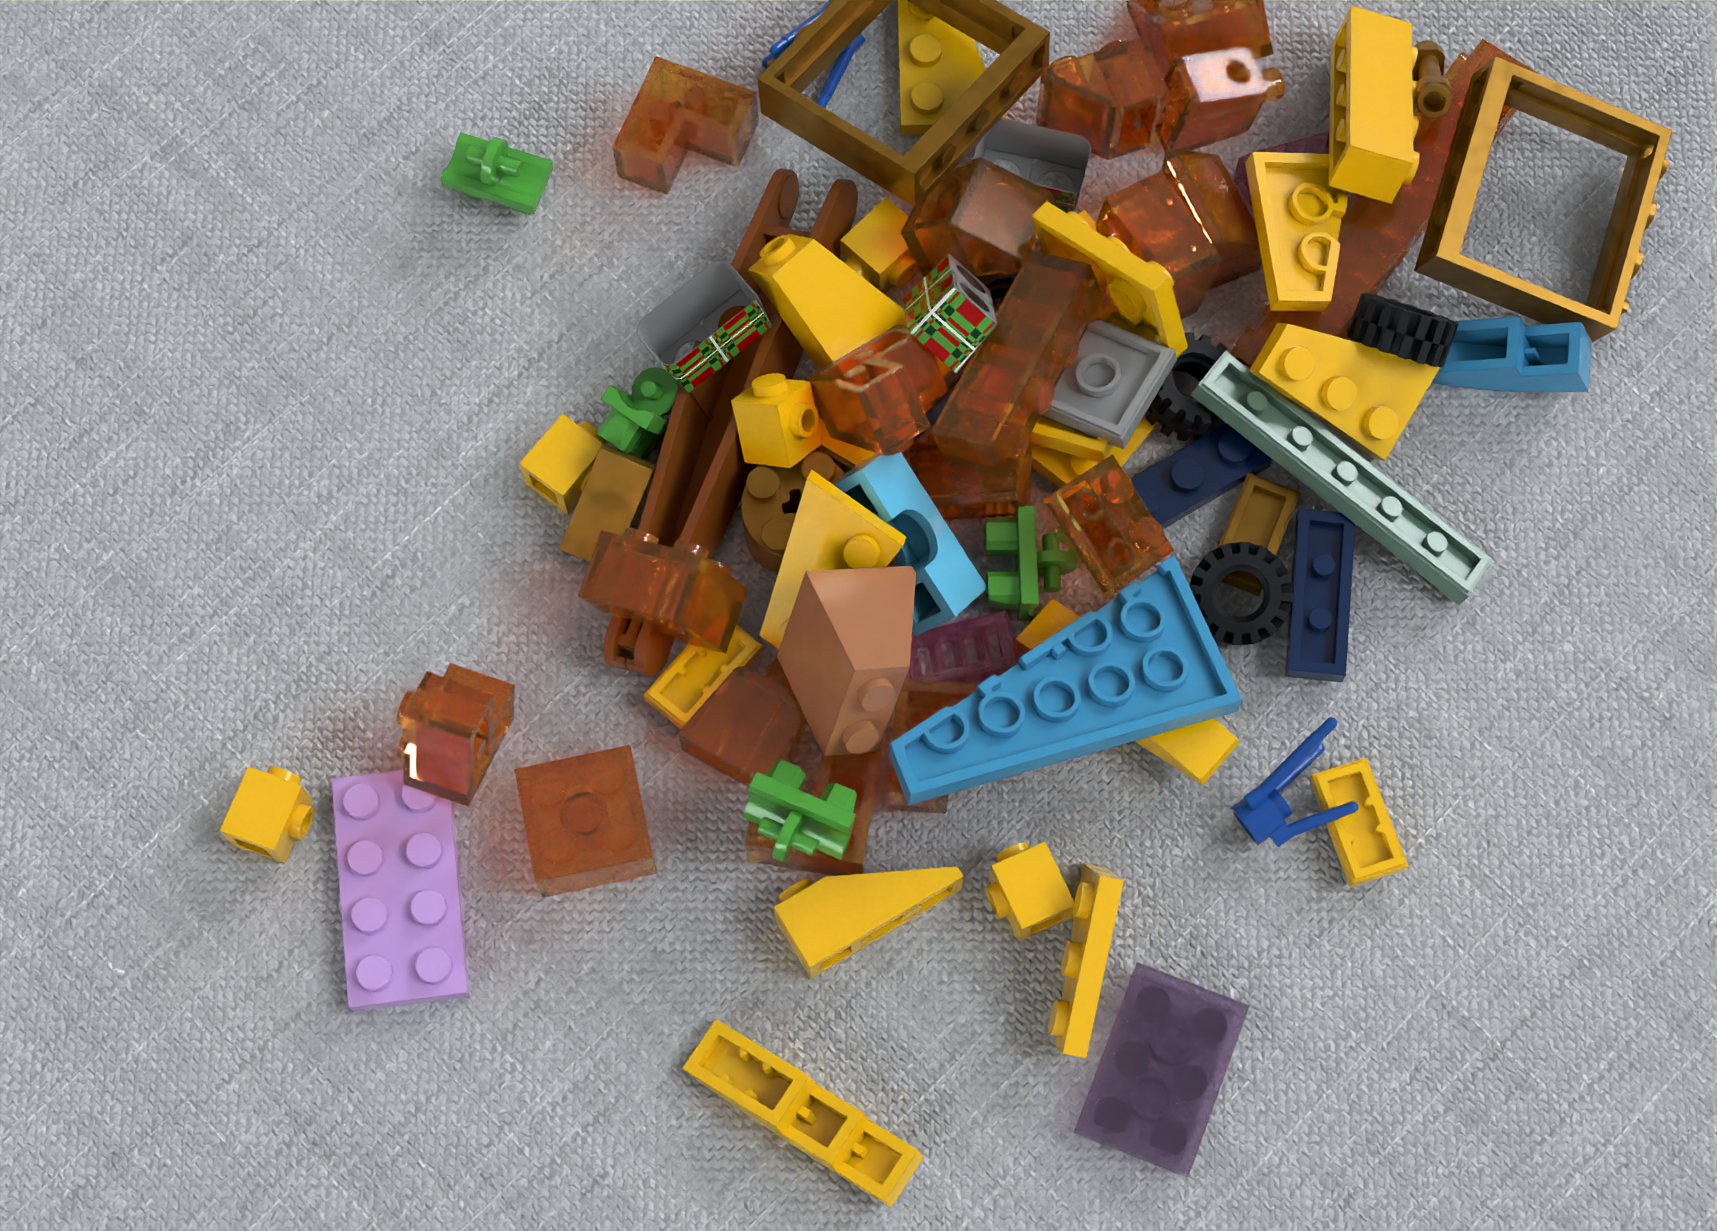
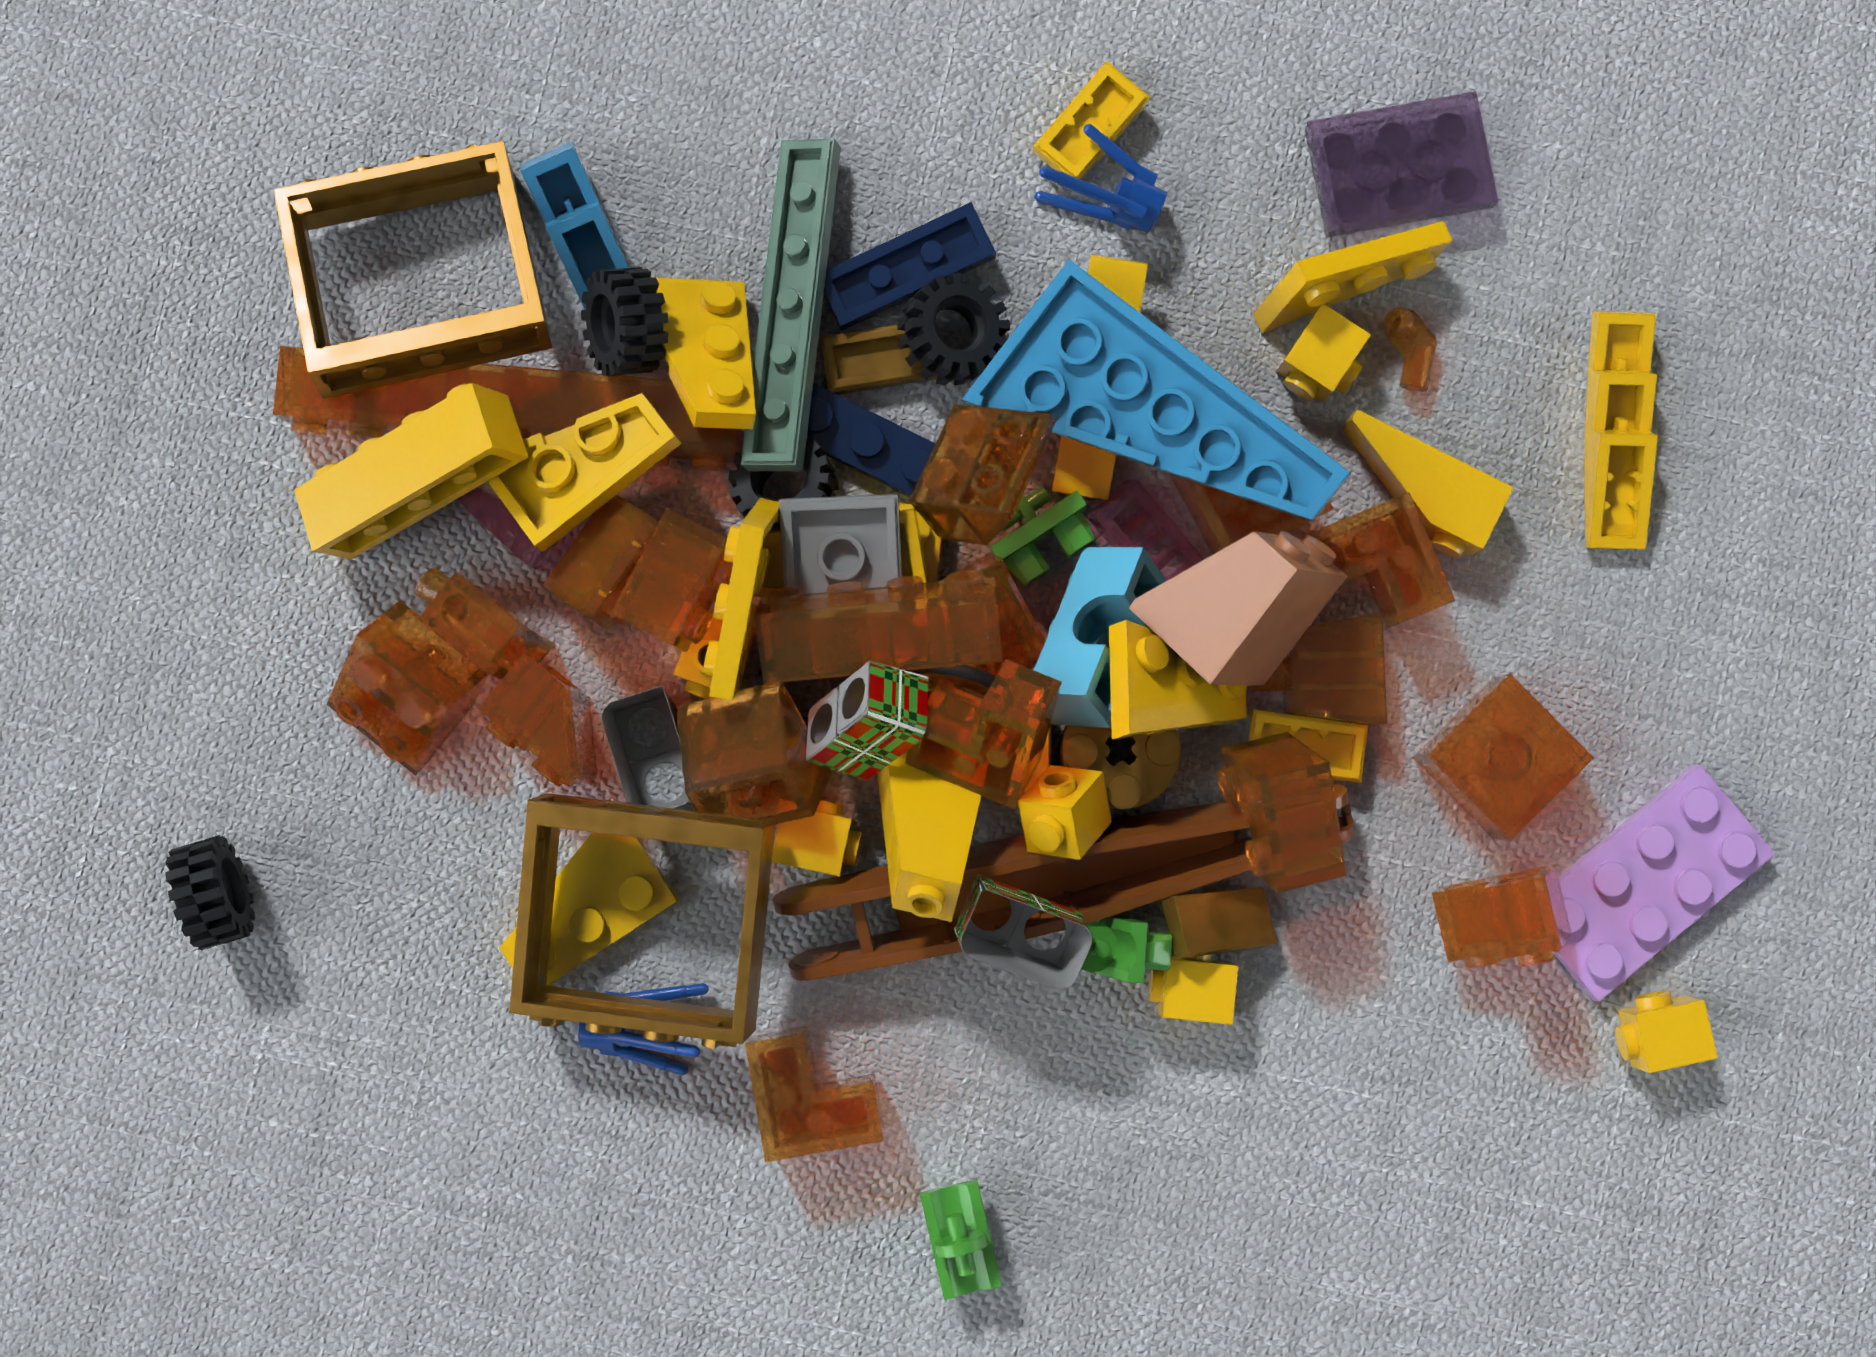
camera: 120 degrees left, 15 degrees up
(798, 818) = (1406, 537): bright green hips -> none
(991, 984) = (1415, 344): none -> clear orange arm
(1432, 89) = (367, 420): pearl gold bar -> none

